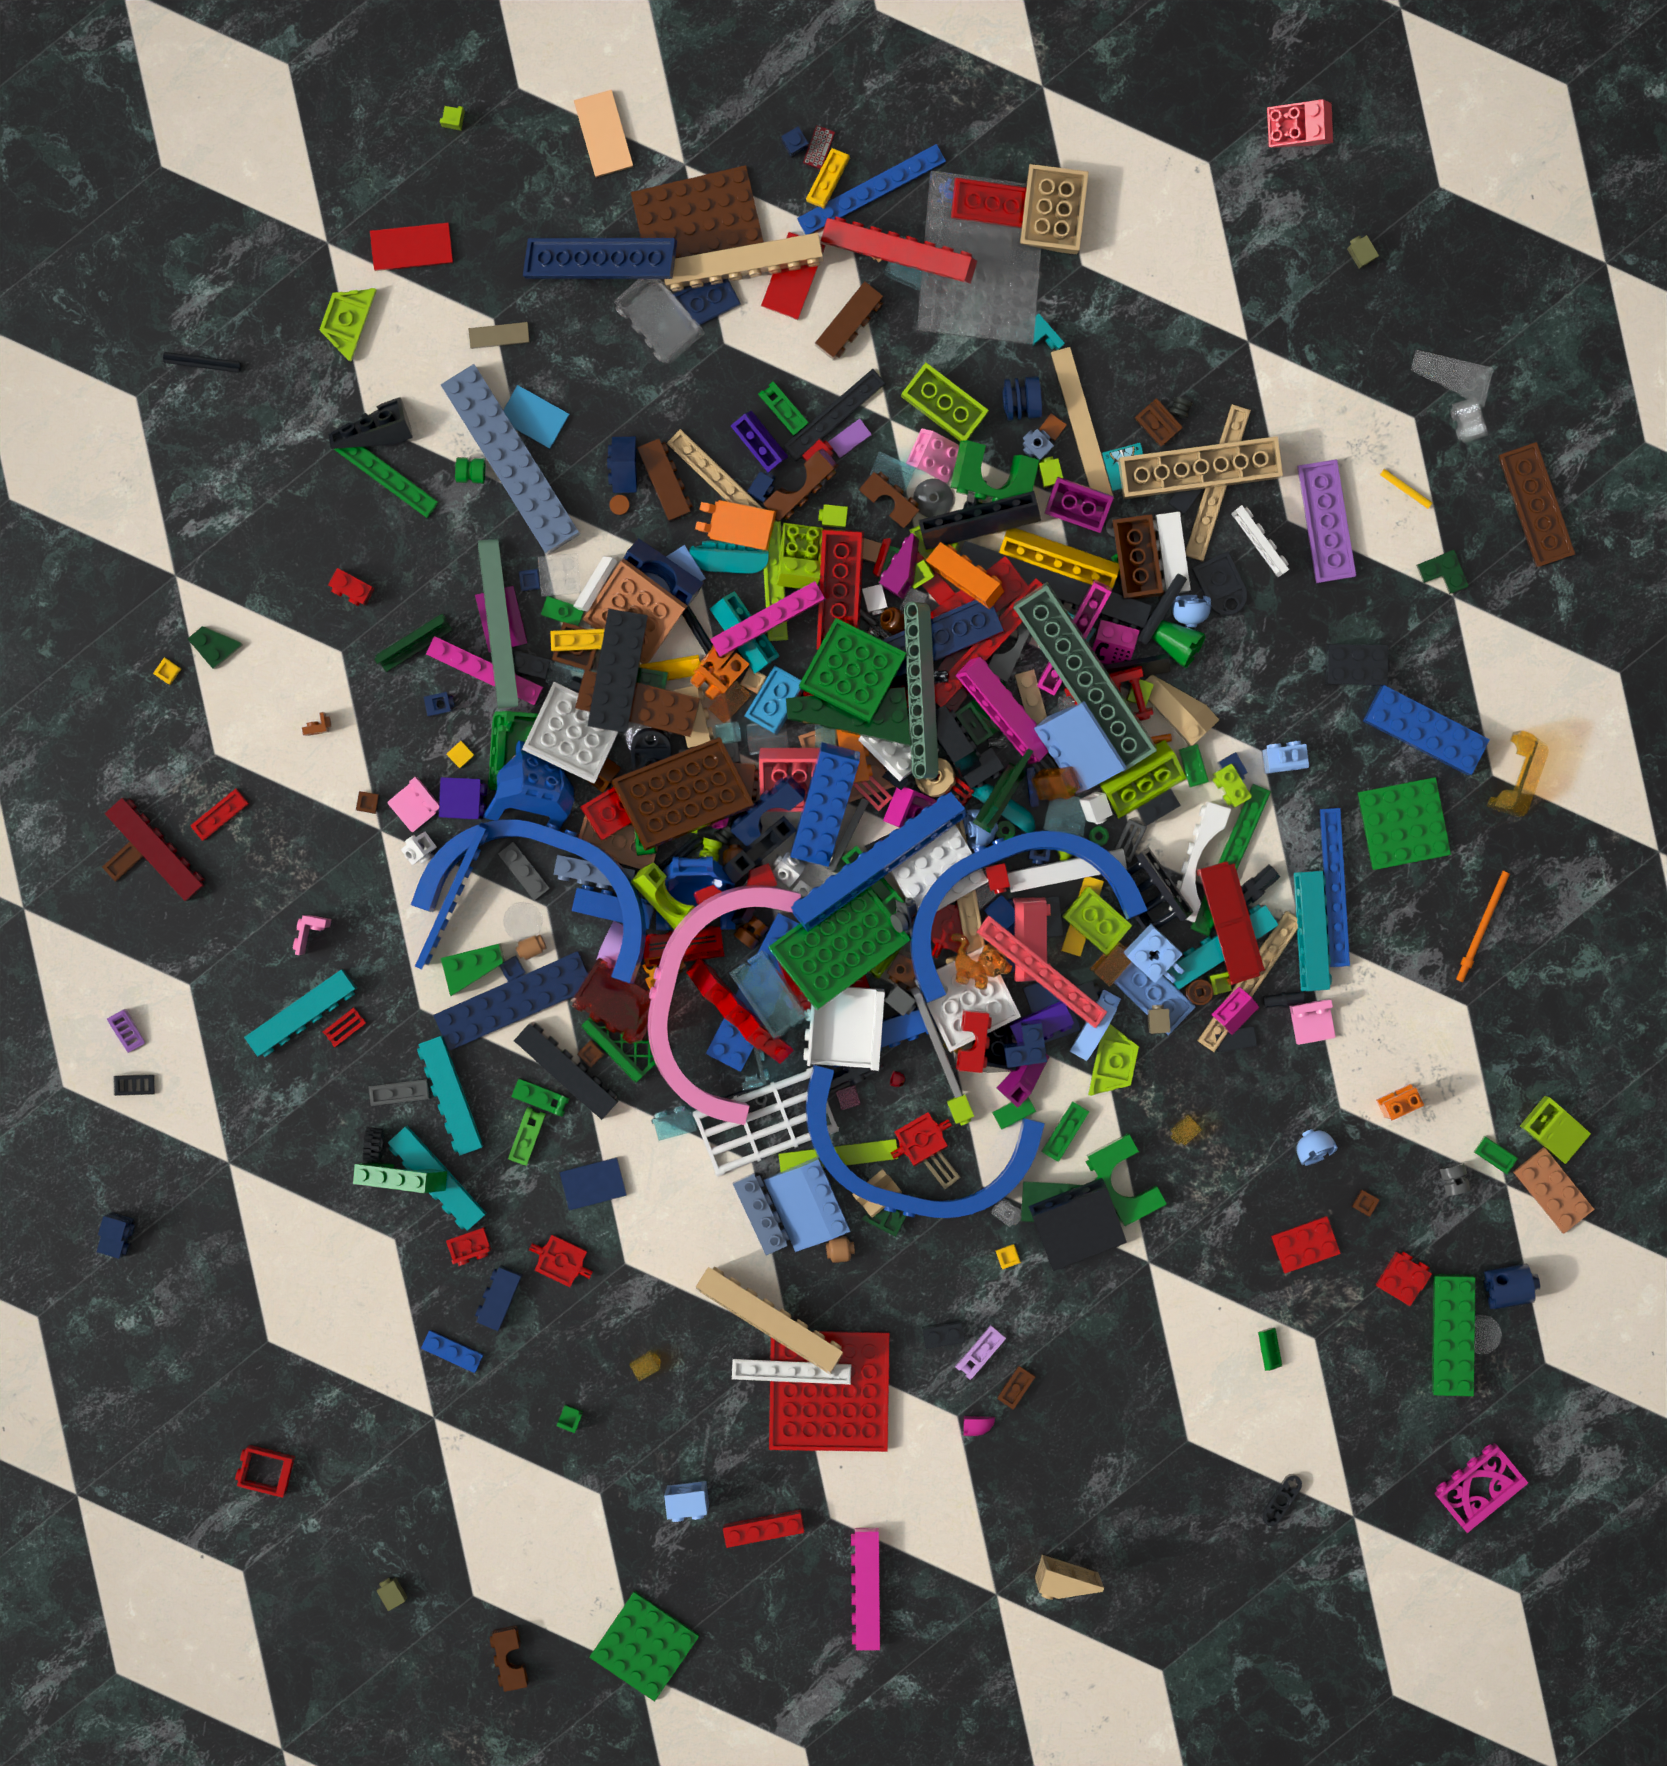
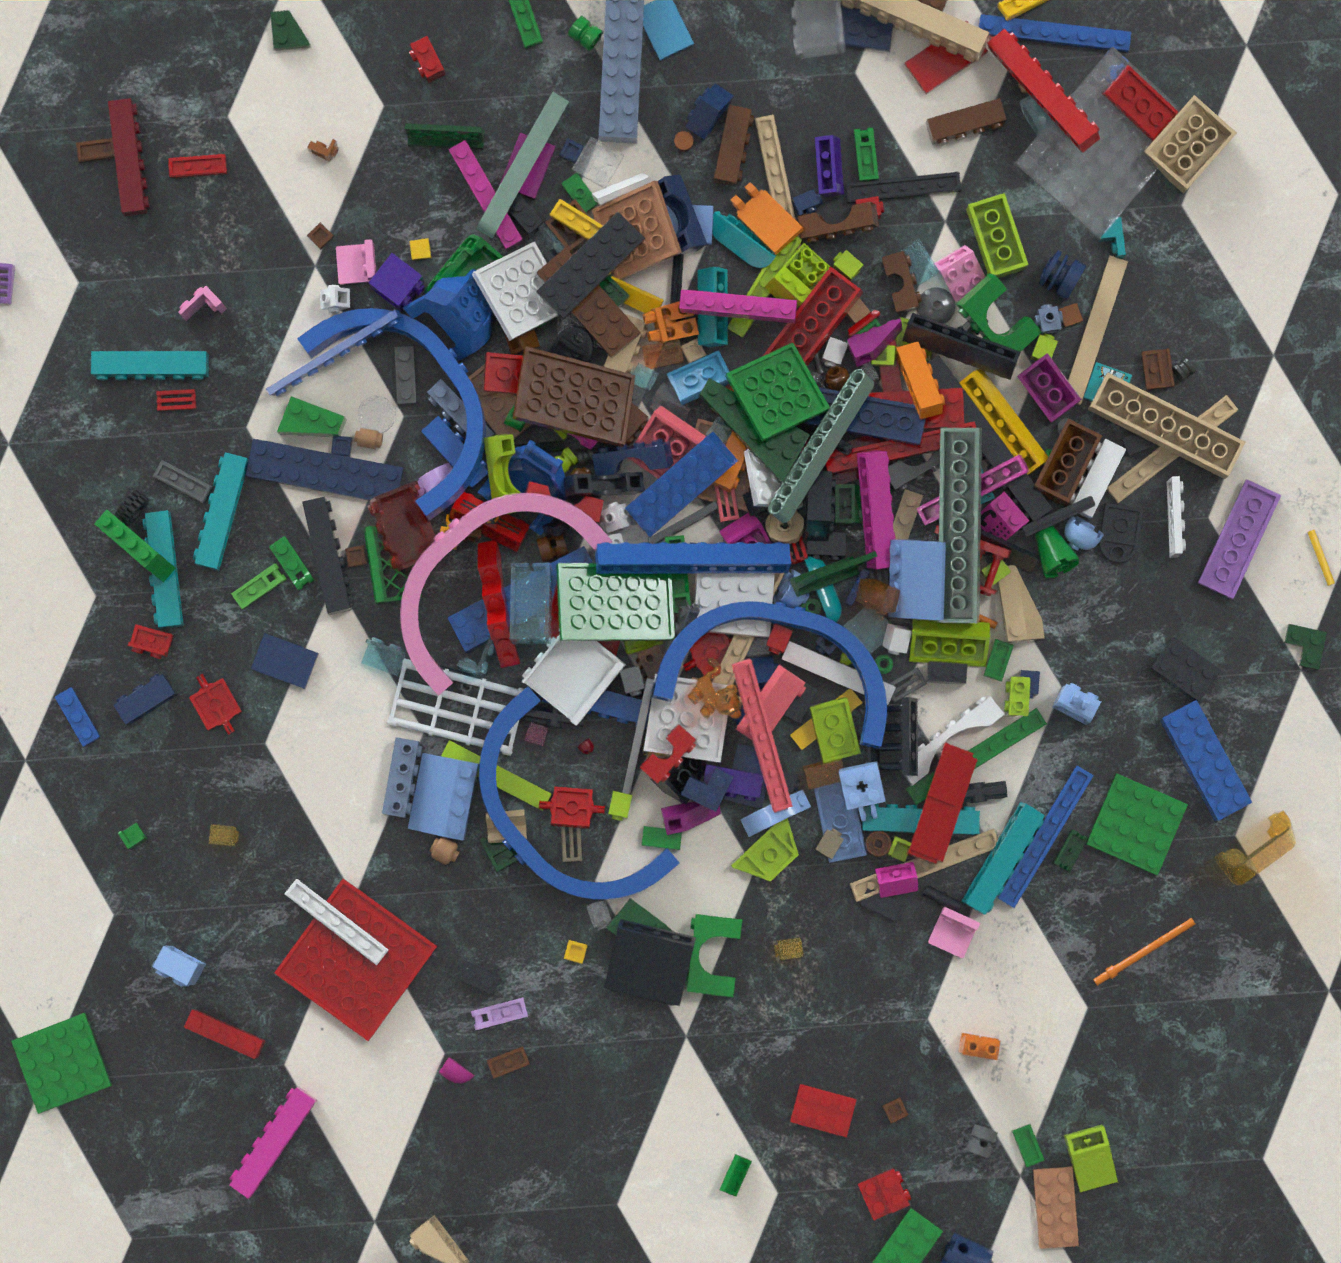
camera: 40 degrees right, 5 degrees down
(167, 671) = (236, 26): yellow tile -> none
(432, 700) = (426, 193): dark blue brick -> none
(769, 1320) = (347, 866): tan brick -> none
(849, 438) = (902, 213): medium lavender tile -> none
(899, 922) = (675, 618): dark grey tile -> none
(1065, 1131) = (692, 882): green plate -> none
(1315, 1146) = (885, 1034): light blue cylinder -> none
(1363, 885) = (1070, 850): none -> dark green hinge

